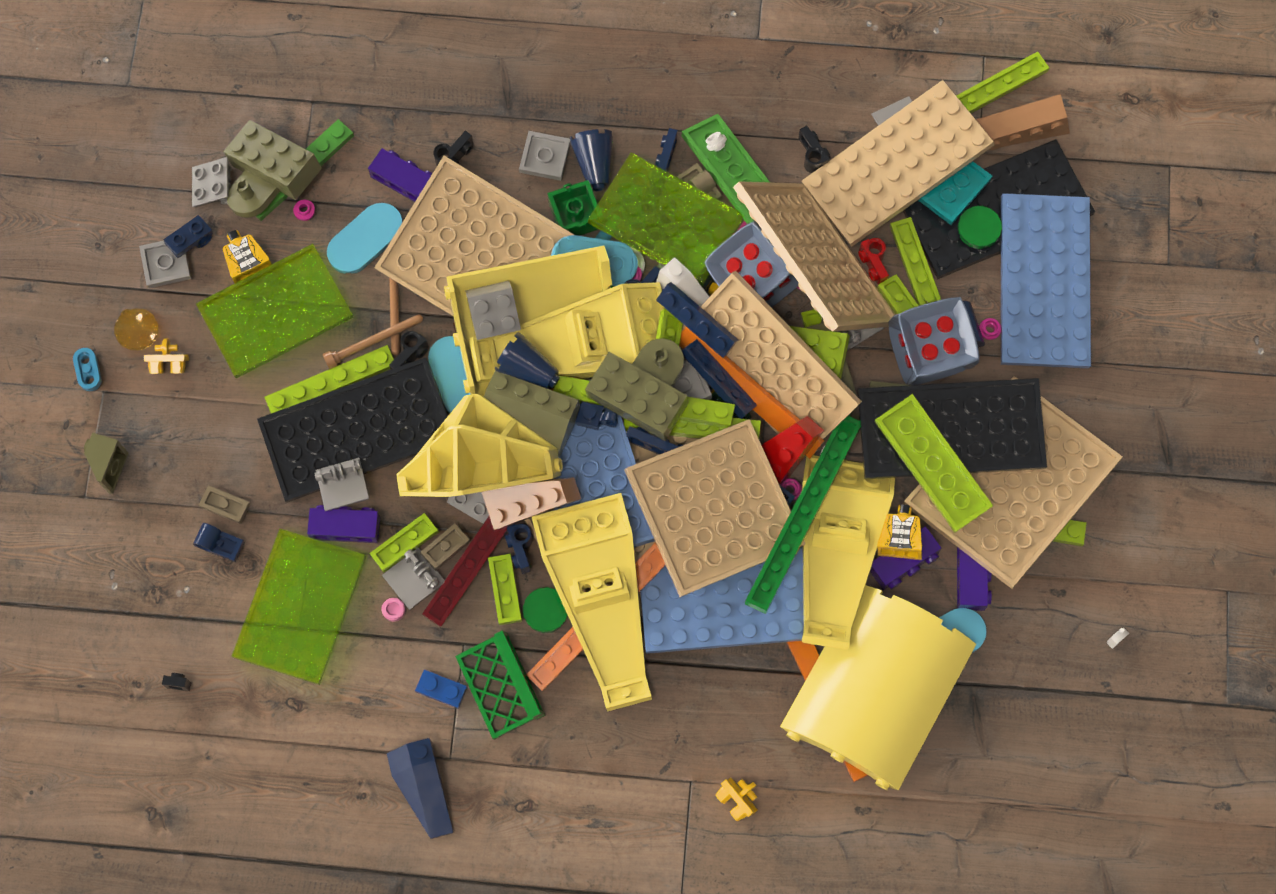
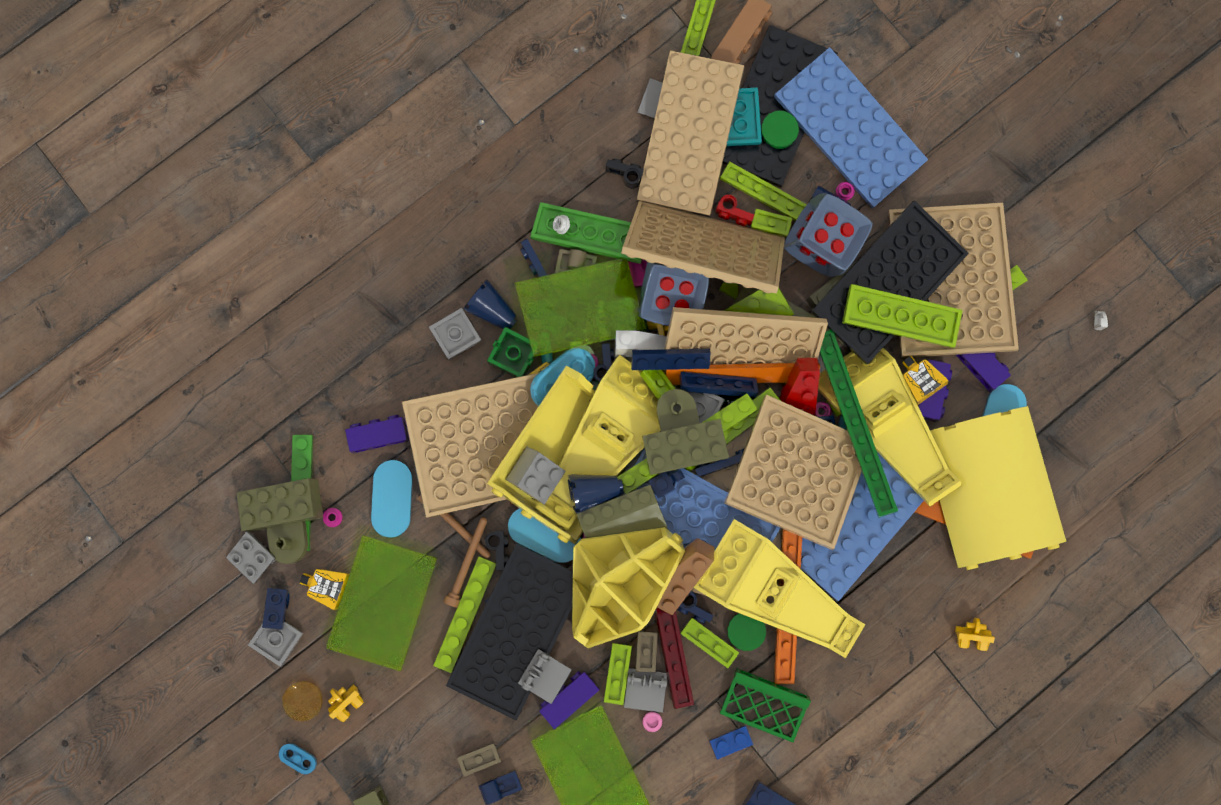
camera: 50 degrees left, 10 degrees up
(461, 147) = (395, 378): black plate -> none

